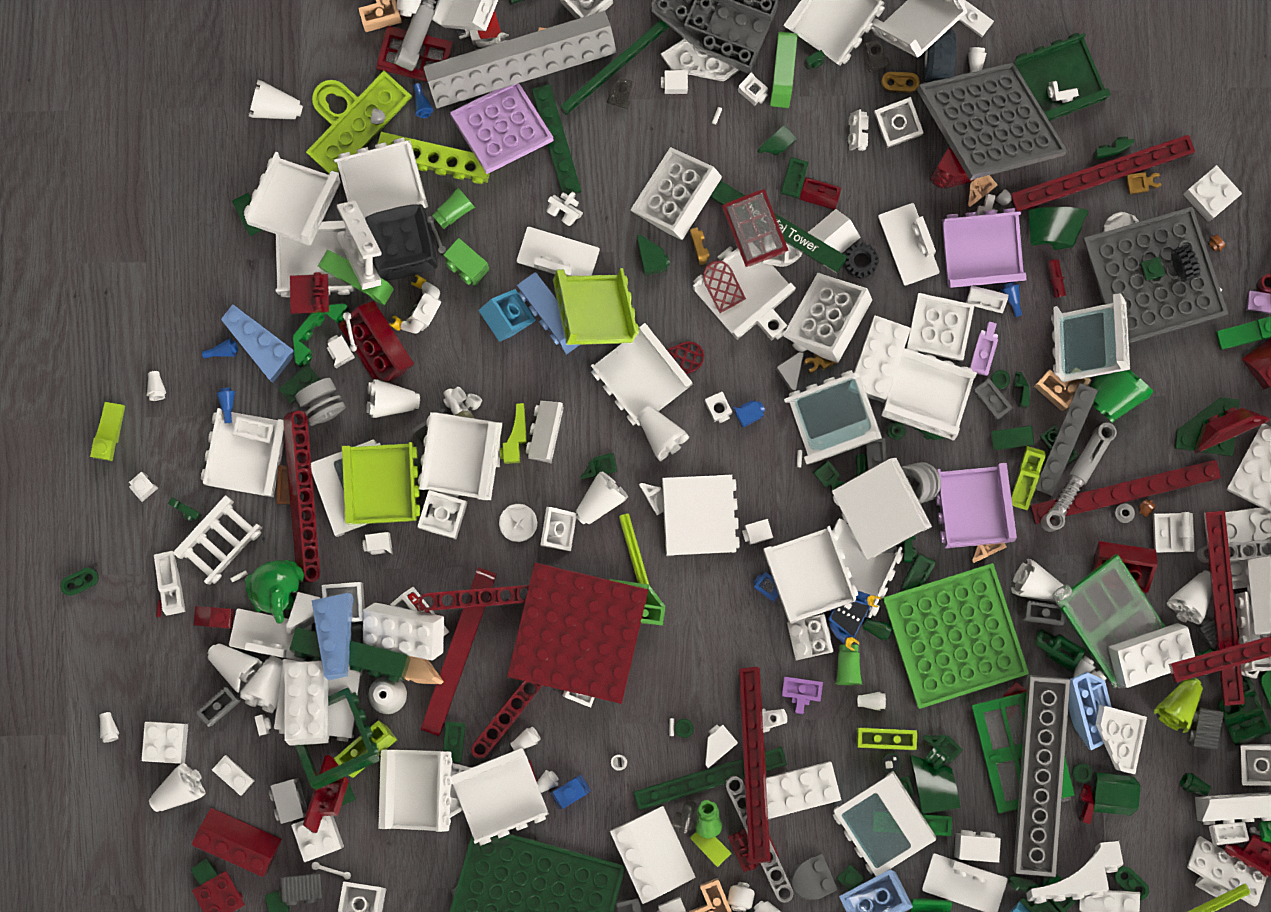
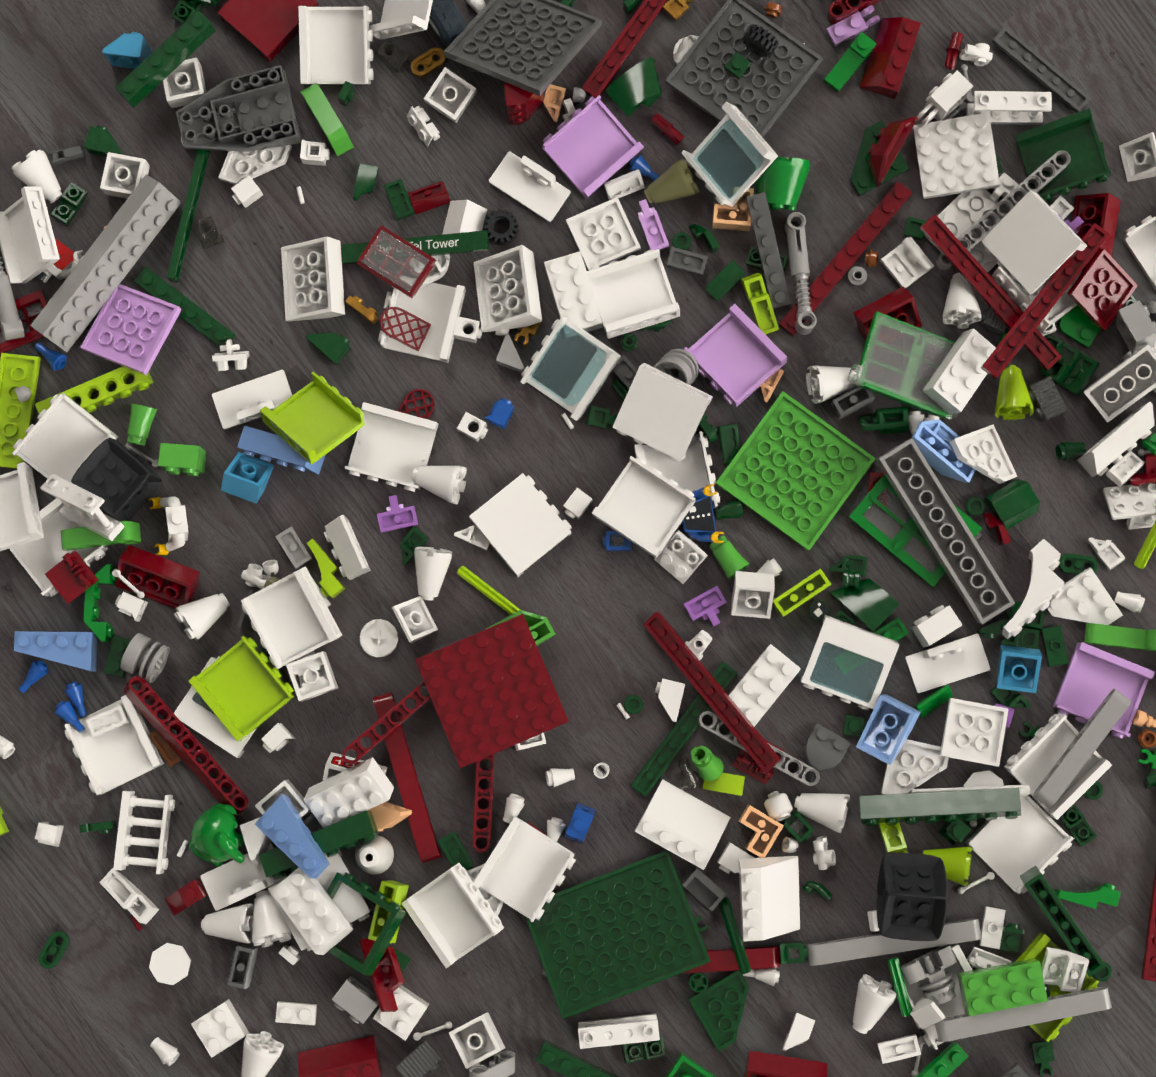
camera: 30 degrees left, 0 degrees up
(162, 661) = (170, 963): none -> white piece
(243, 390) = (75, 694): none -> blue cone
(503, 399) = (293, 547): none -> light grey plate
(581, 742) = (559, 776): none -> white cone
(604, 435) = (397, 516): none -> medium lavender hinge
(846, 711) = (752, 594): none -> white brick
(1027, 327) = (672, 184): none -> olive cone
(1163, 891) = (1107, 552): none -> white slope
(1200, 506) = (912, 228): none -> dark green plate

